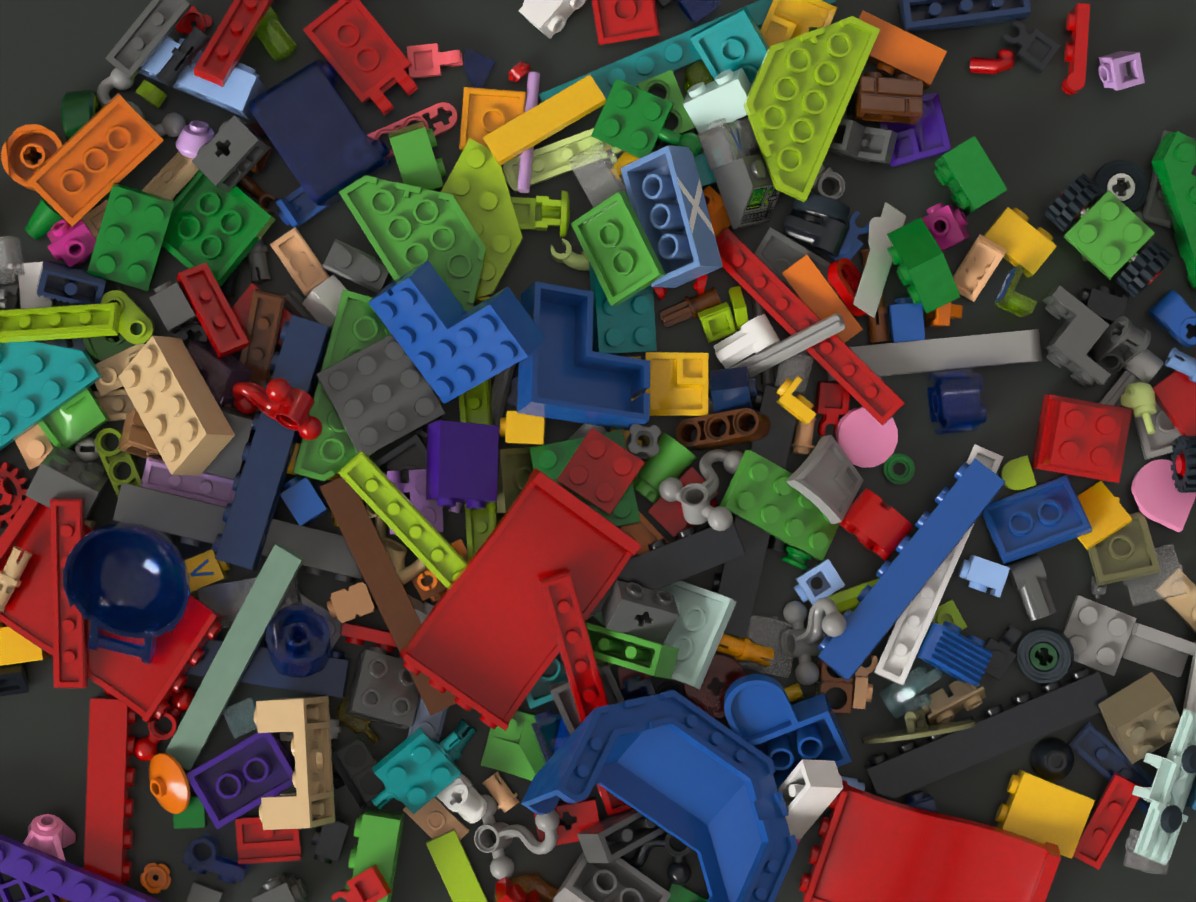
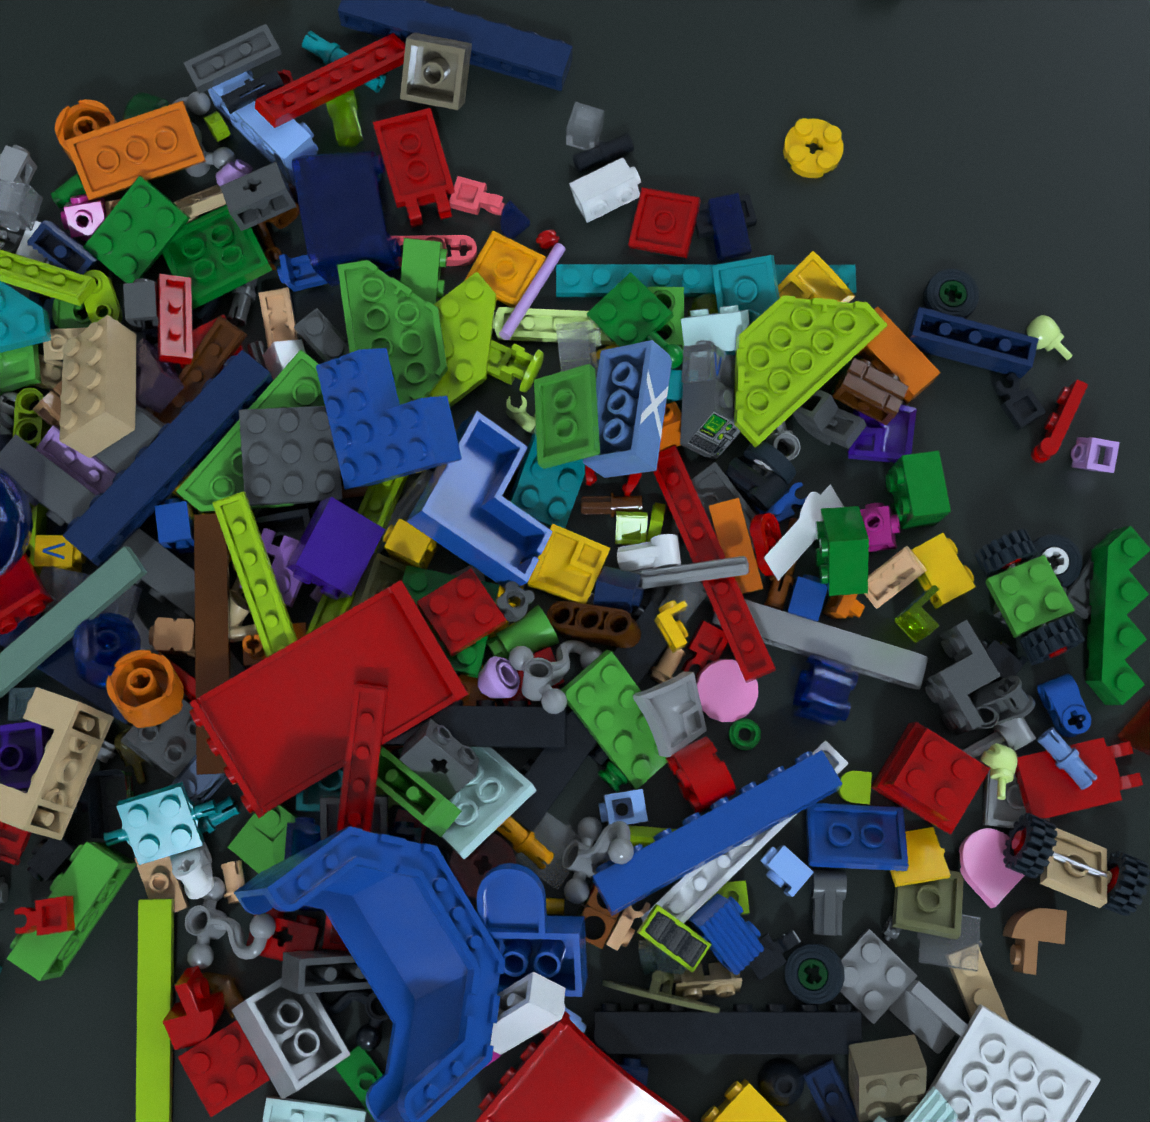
camera: 20 degrees right, 10 degrees down
(281, 403) = (194, 425): red piece -> none
(365, 674) = (145, 688): none -> orange brick
(544, 120) = (550, 283): yellow tile -> none
(659, 517) = (498, 679): none -> lavender cone
(910, 678) = (674, 938): none -> tile
(993, 66) = (986, 407): red arm -> none

